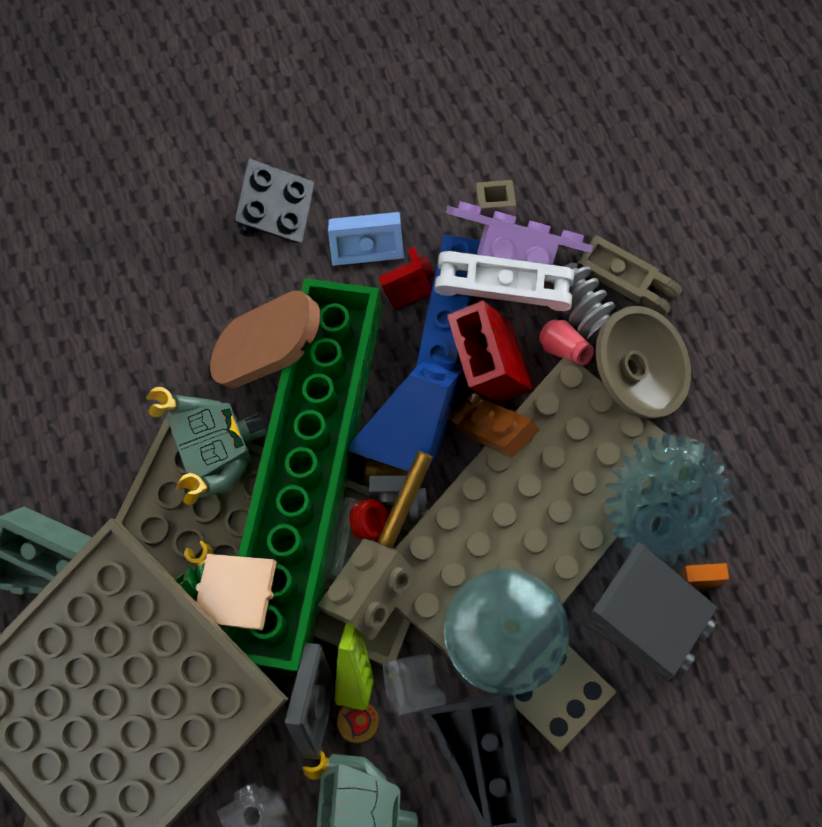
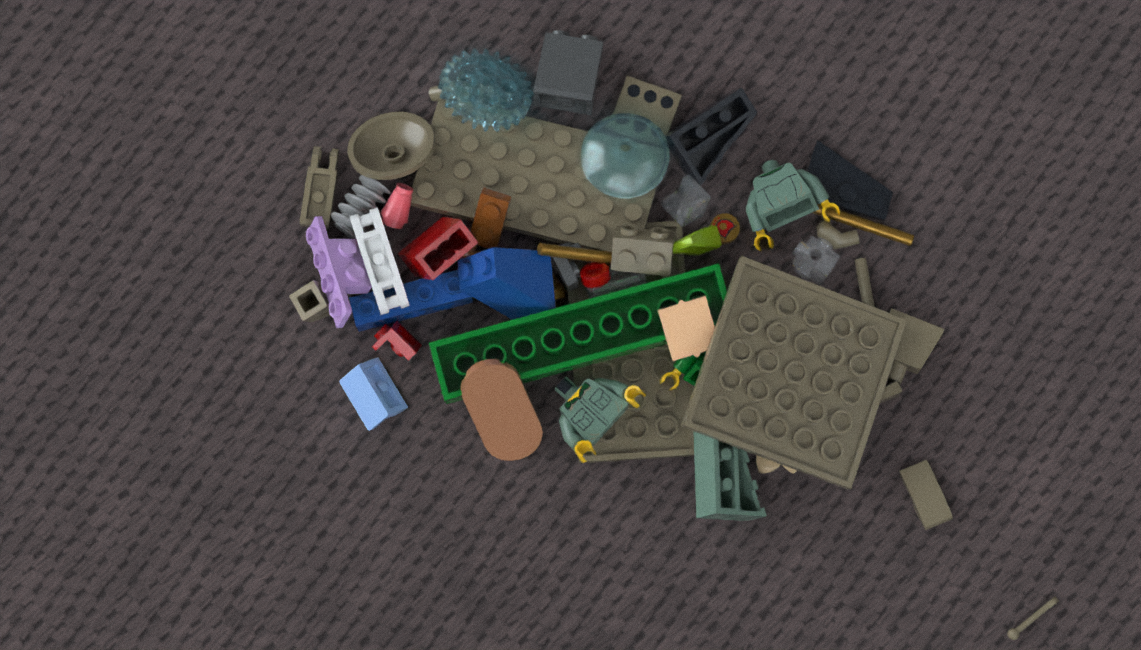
camera: 120 degrees left, 10 degrees up
(273, 202) = (376, 476): hinge -> none
(311, 702) = (729, 253): dark grey tile -> none
(706, 575) = (525, 50): orange tile -> none

